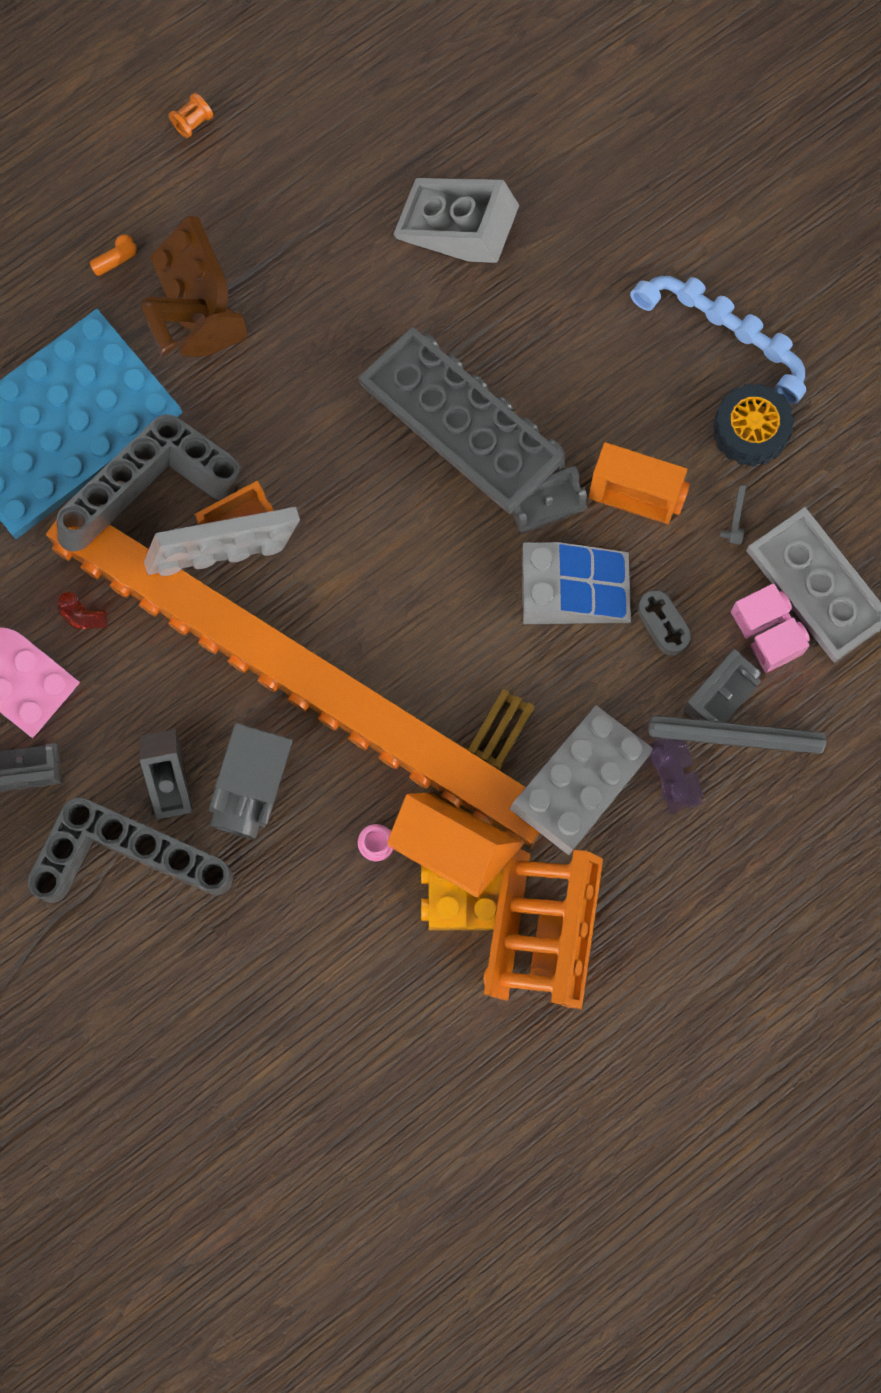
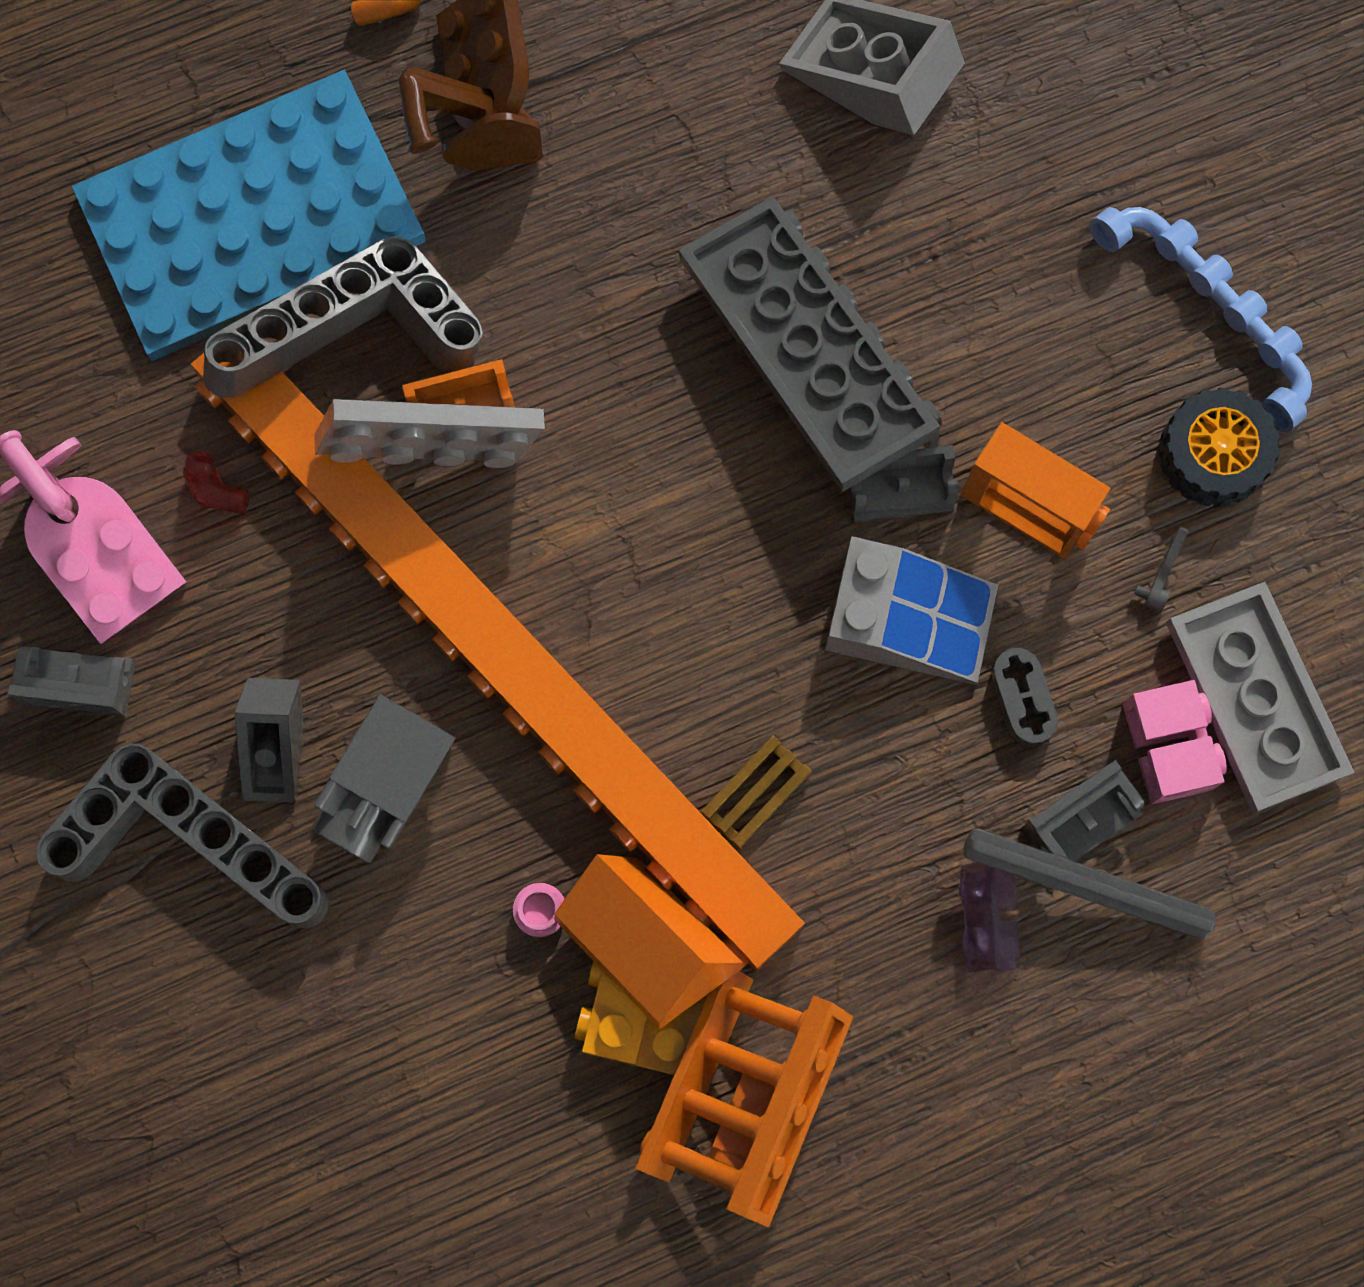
camera: 10 degrees right, 0 degrees up
(581, 780) = (851, 894): light grey plate -> none

